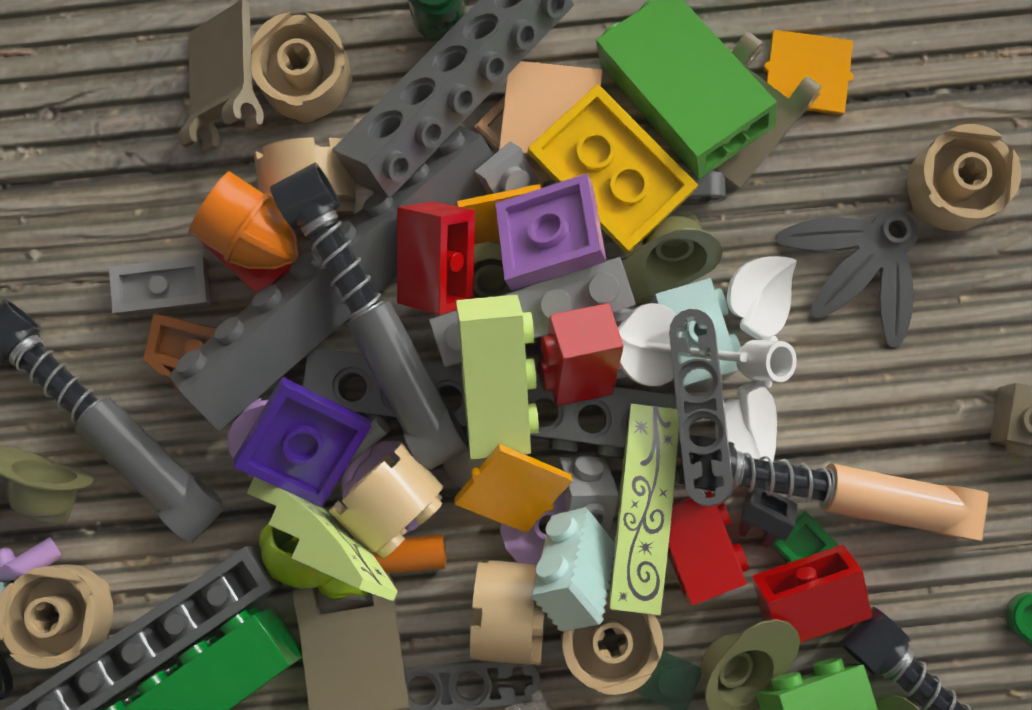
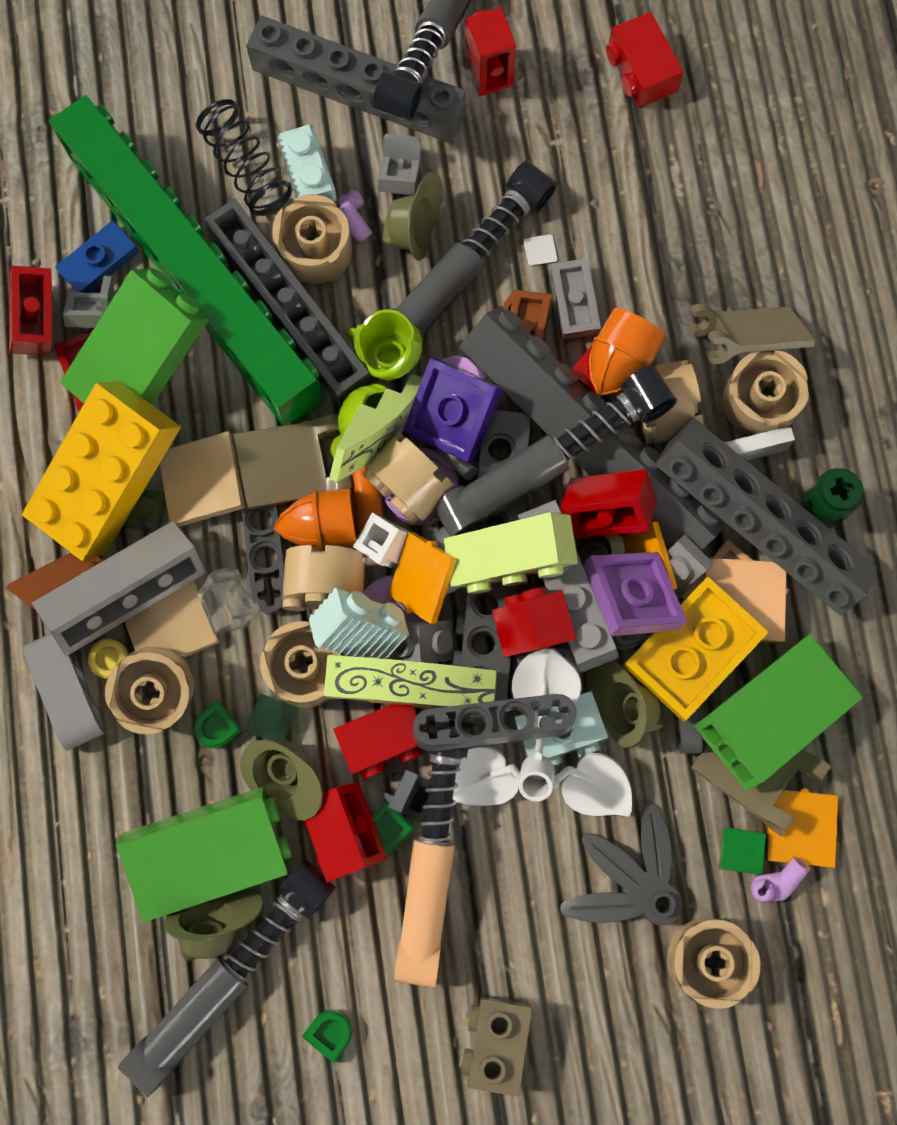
camera: 85 degrees right, 5 degrees down
(90, 326) = (540, 249): none -> white sticker
(210, 521) = (387, 344): none -> lime hair
(361, 75) = (763, 443): none -> white tile
(430, 614) = (320, 520): none -> orange helmet
(461, 536) = (381, 540): none -> white brick
(834, 139) = (742, 851): none -> green tile
(872, 100) = (781, 884): none -> lavender arm

